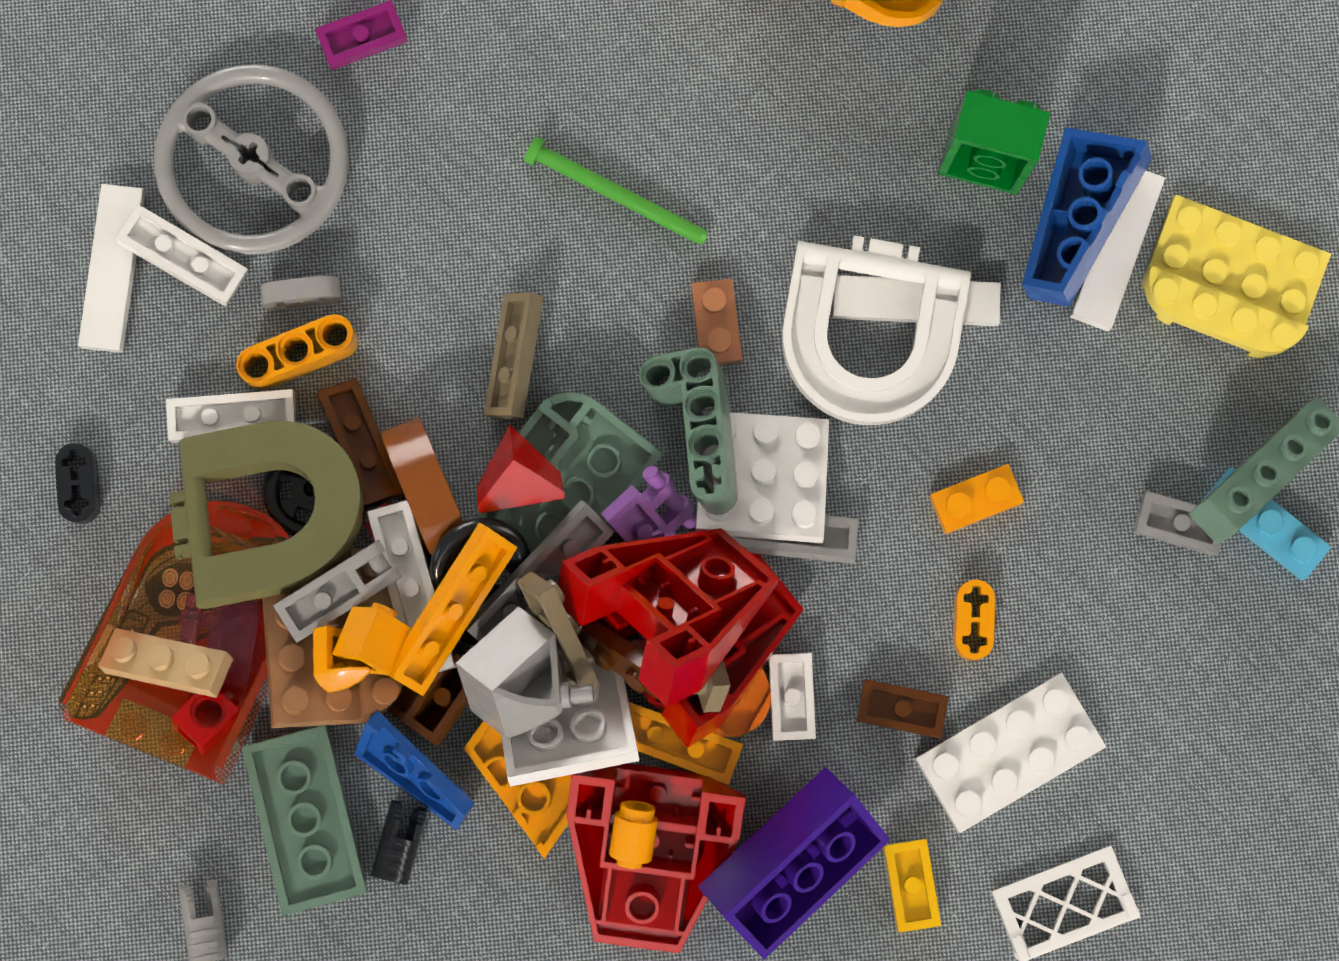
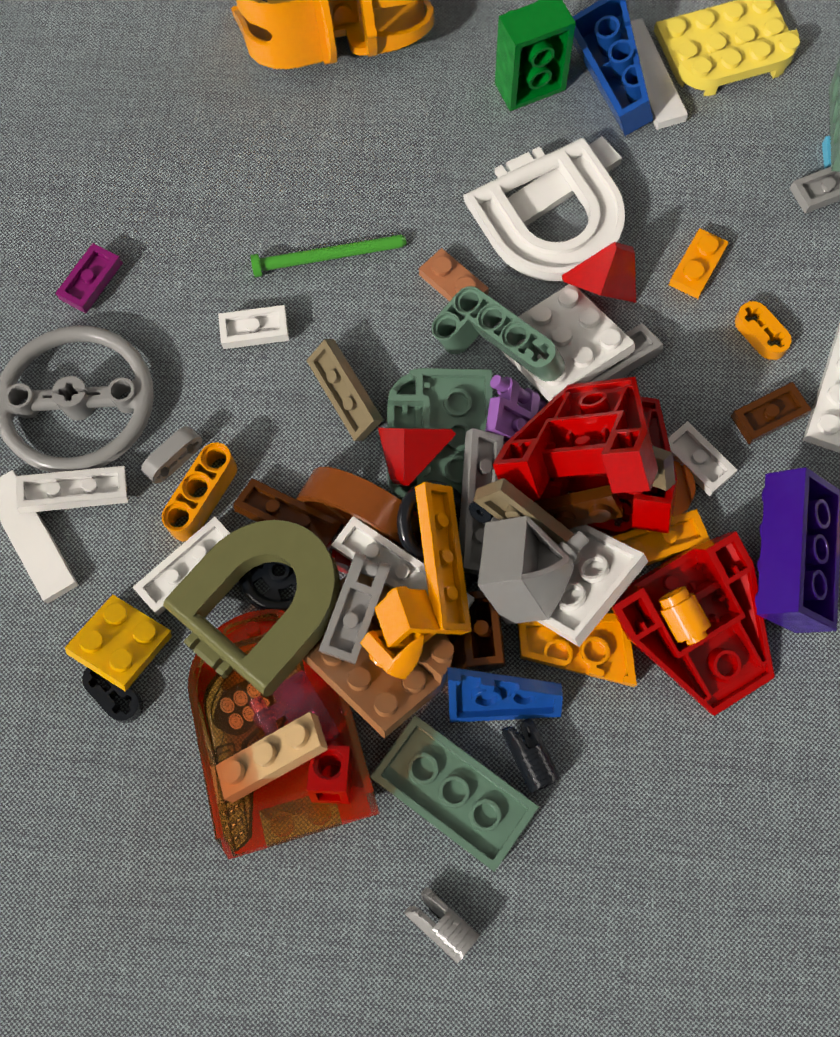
camera: 30 degrees left, 10 degrees down
(116, 442) = (118, 642): none -> yellow plate
(480, 218) = (253, 327): none -> white plate
(858, 446) = (607, 273): none -> red slope

